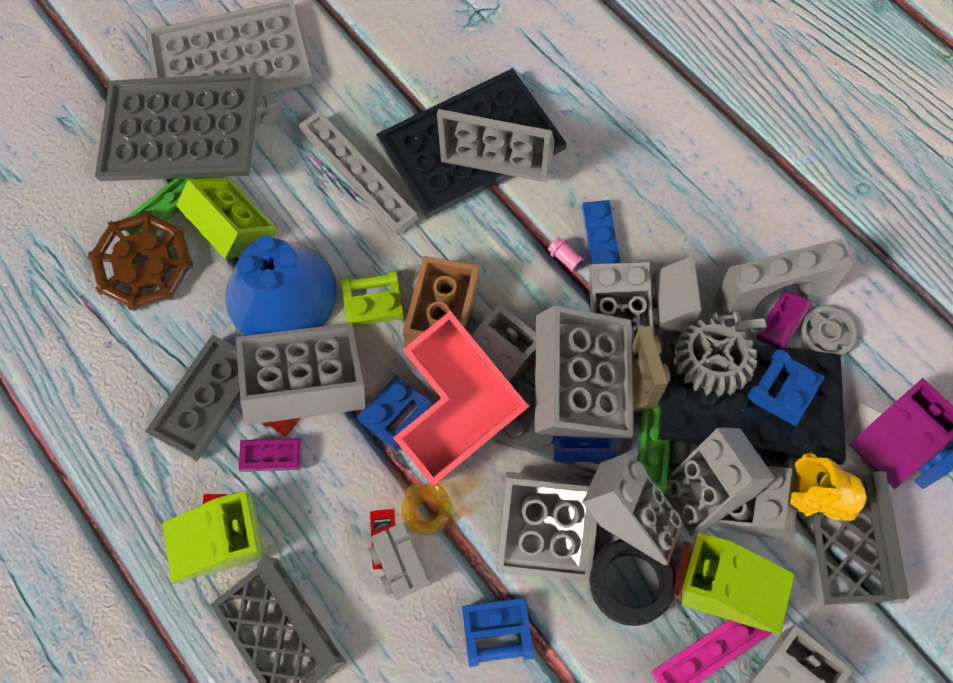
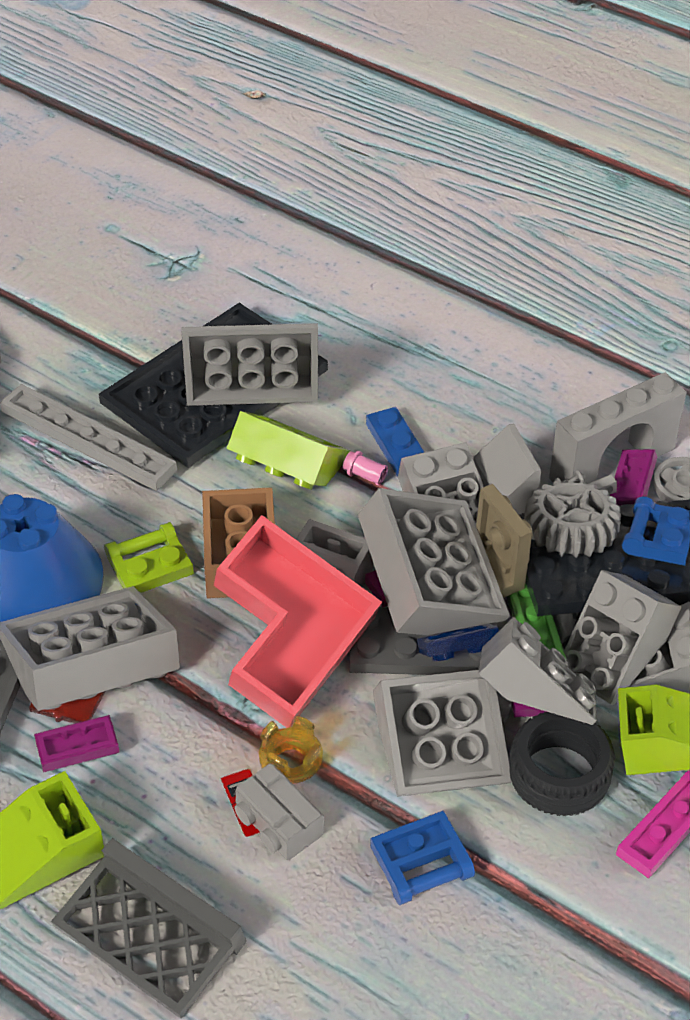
camera: 20 degrees left, 20 degrees down
(389, 407) = (206, 666): blue plate -> none
(508, 222) = (285, 450): none -> lime slope
(682, 570) = (615, 734): clear red piece -> none

